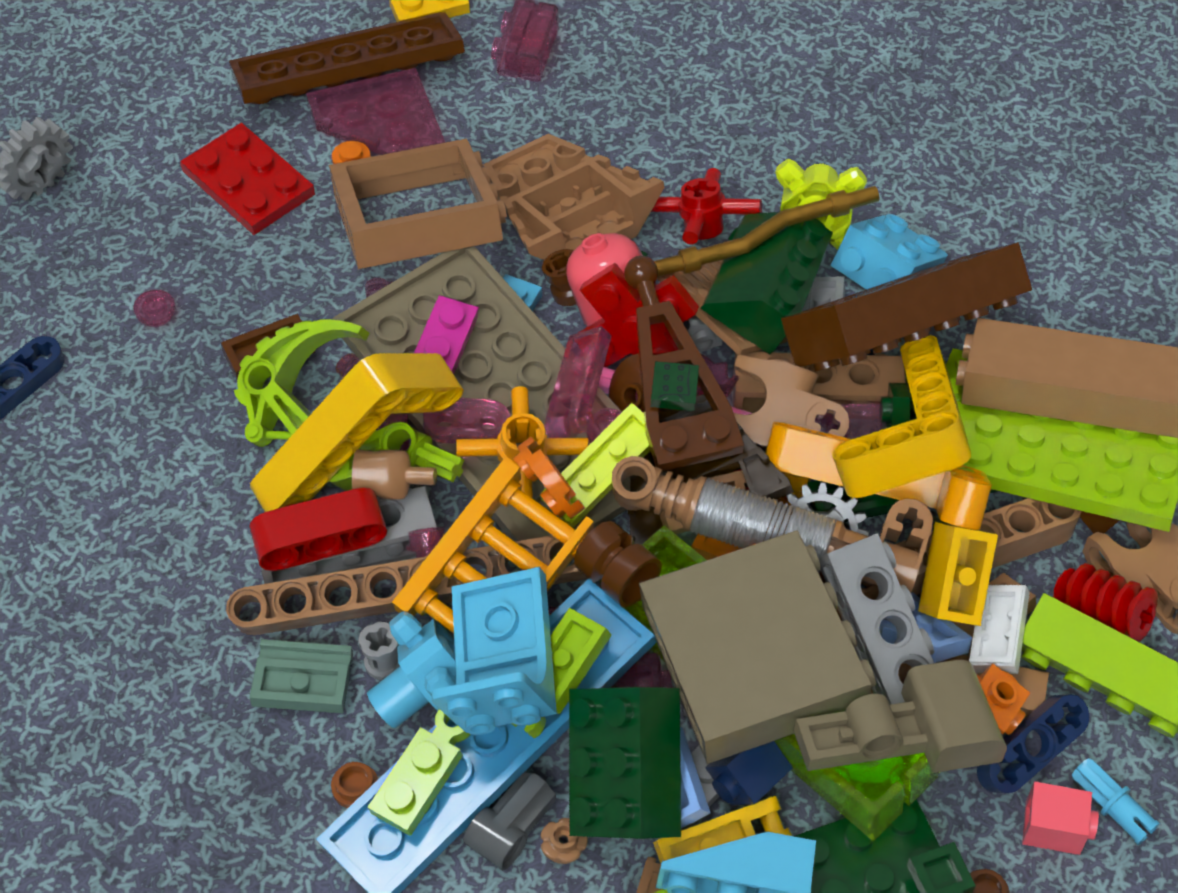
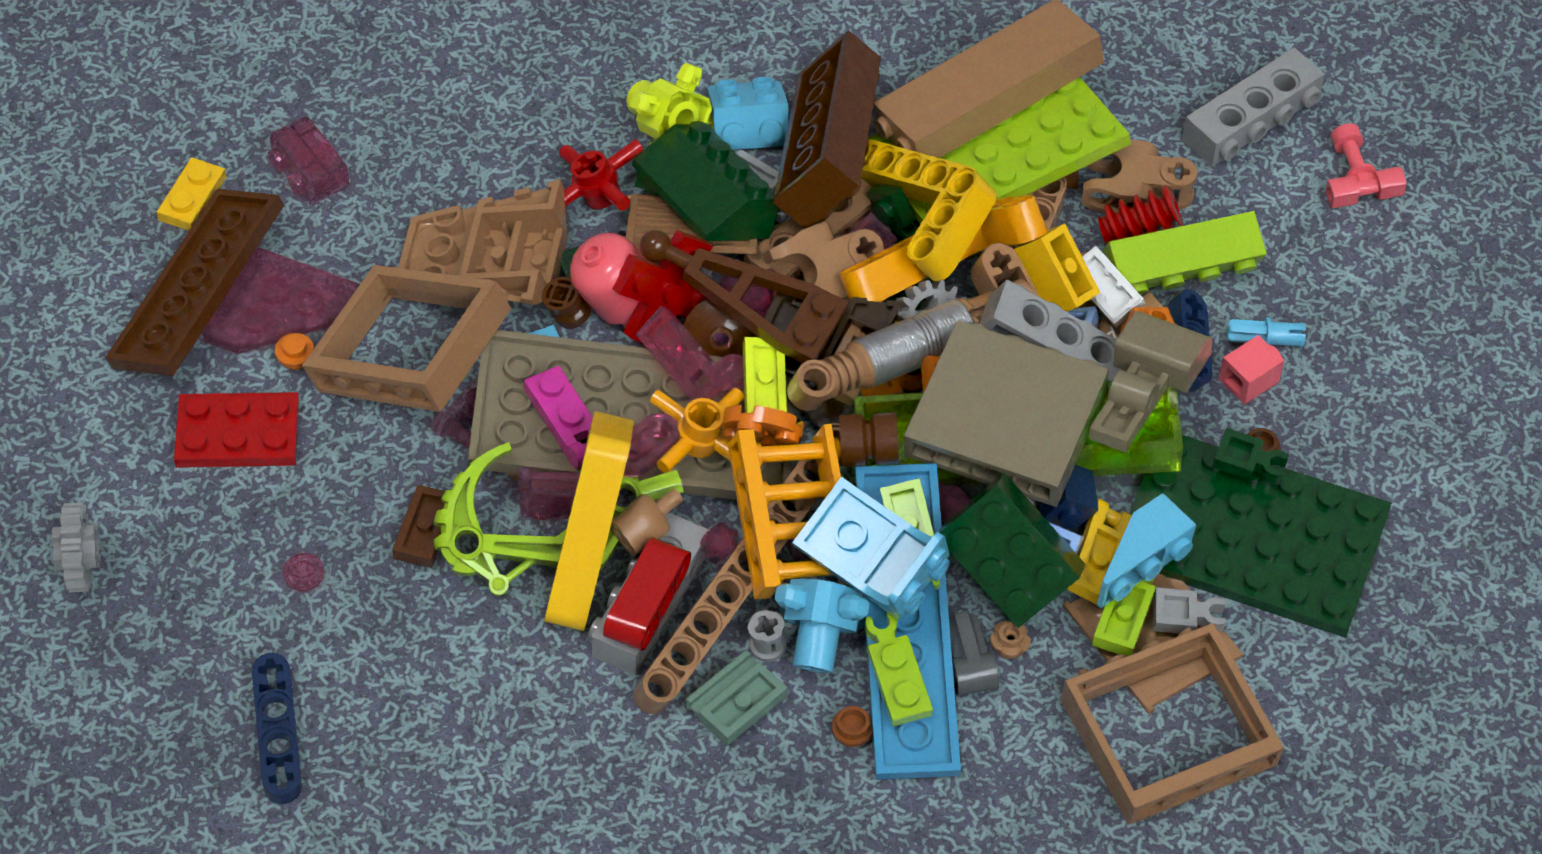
camera: 50 degrees left, 0 degrees up
(674, 386) = (770, 299): dark green tile -> none
(835, 204) = (700, 101): pearl gold bar -> none

